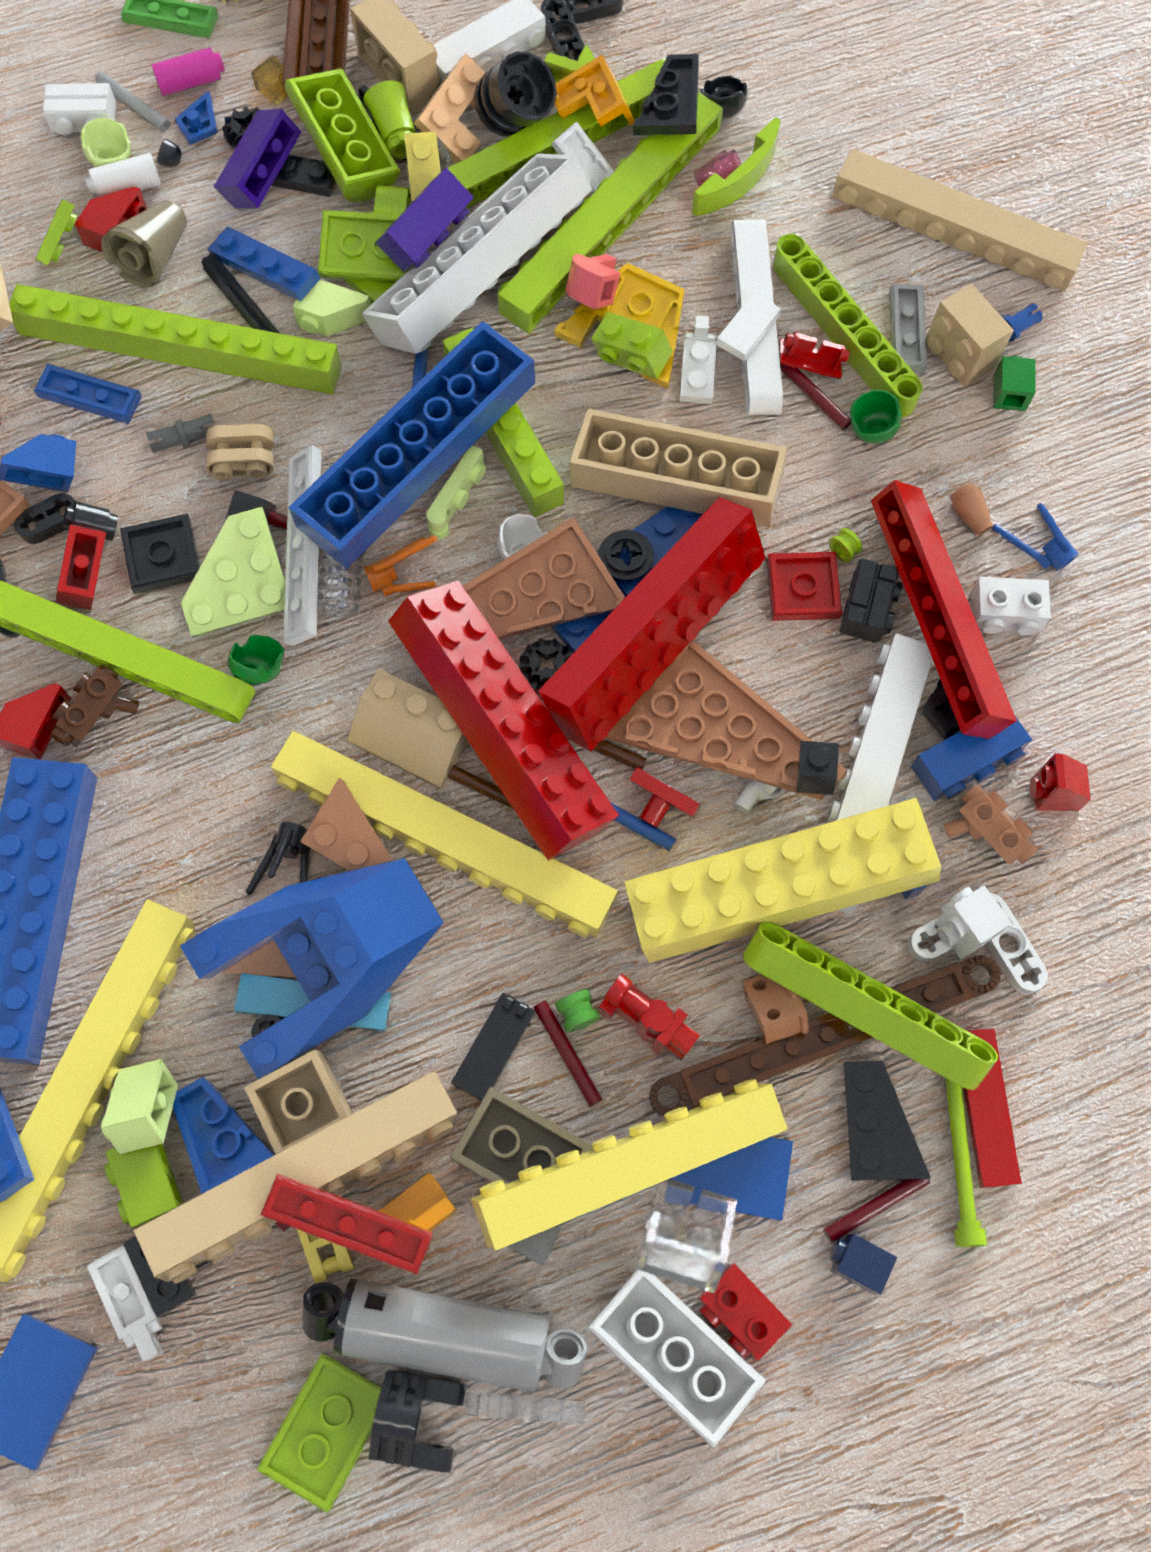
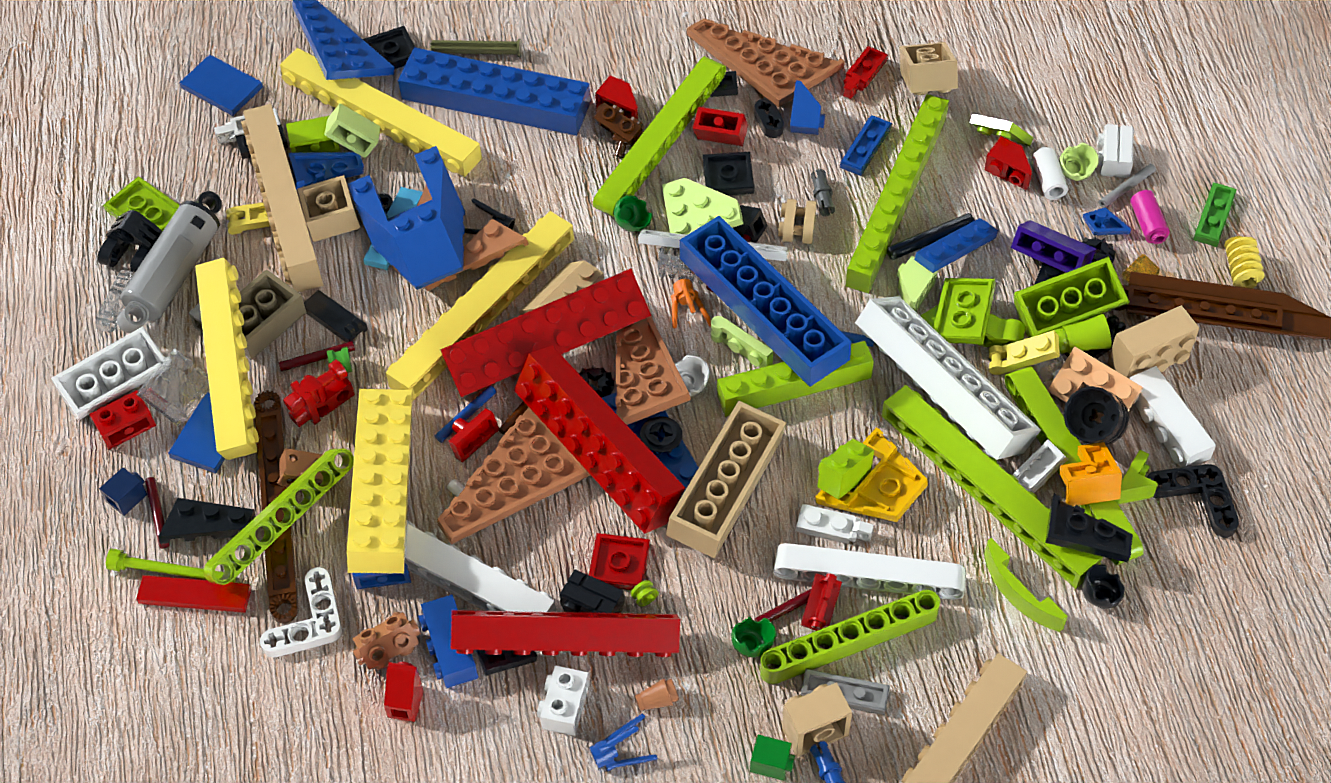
camera: 105 degrees right, 15 degrees down
(92, 518) = (756, 135): black brick -> none
(145, 243) = (986, 179): dark tan cone -> none
(169, 154) = (1072, 200): black hinge -> none
(346, 1223) = (239, 202): red tile -> none
(421, 1204) = (241, 248): light orange panel -> none
(425, 221) = (970, 337): dark purple brick -> none
(593, 280) = (911, 444): coral brick -> none
(722, 165) = (1024, 571): clear pink cone -> none
(748, 326) = (848, 550): white tile -> none
(817, 767) = (452, 508): black brick -> none
(971, 921) = (313, 588): white brick -> none

